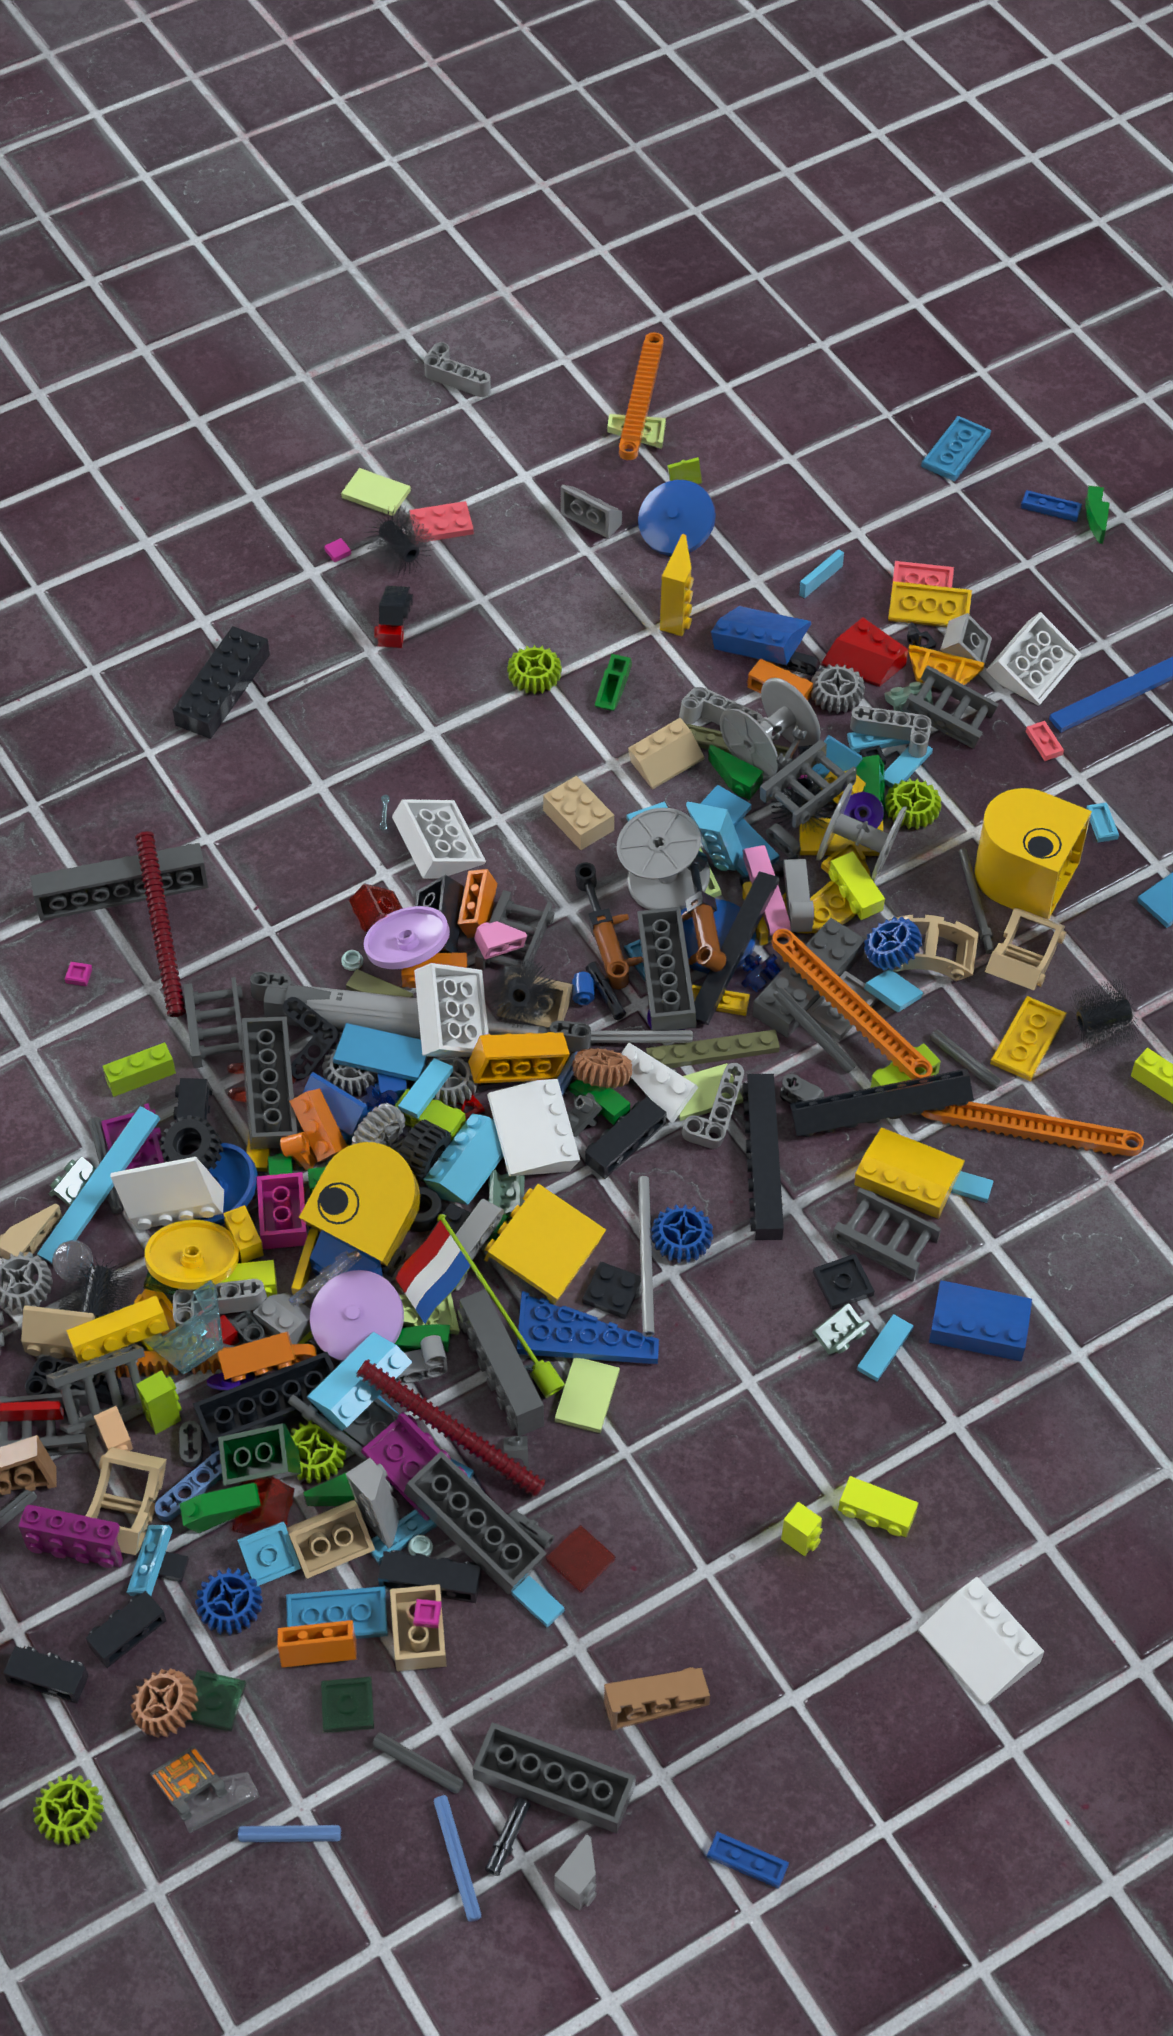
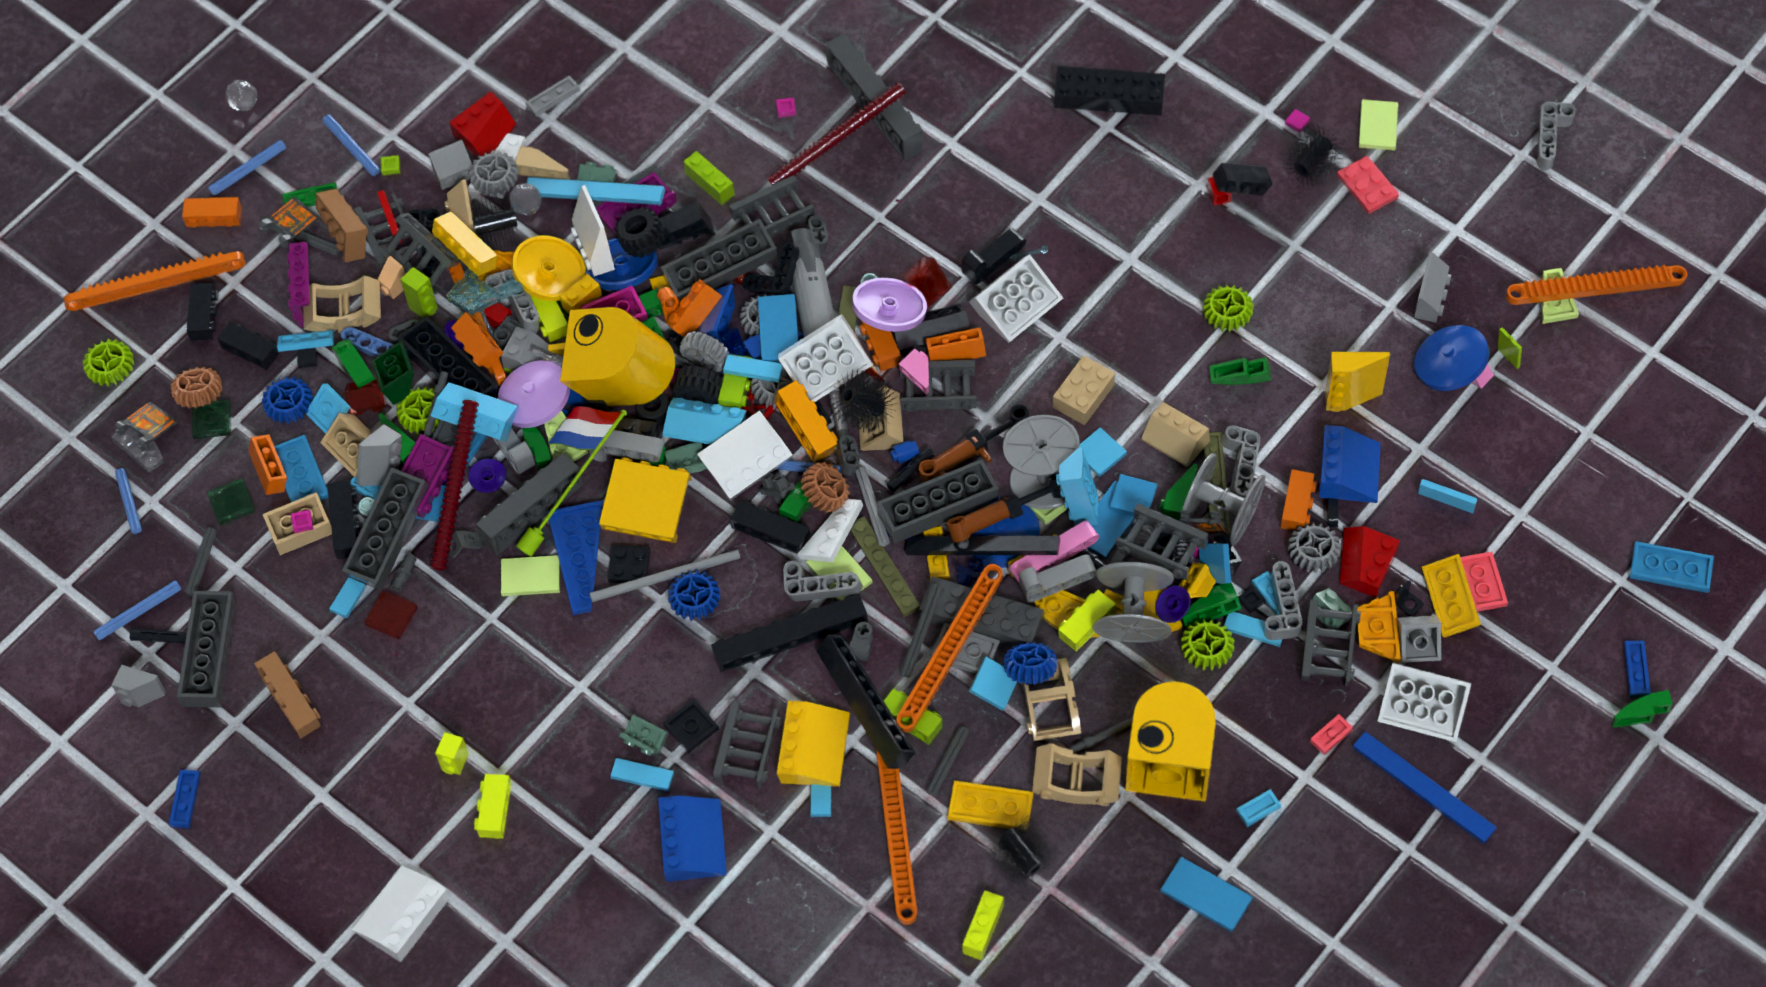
camera: 75 degrees right, 5 degrees up
(381, 849) = (980, 266): none -> black beam
(444, 1394) = (484, 469): none -> dark purple dish

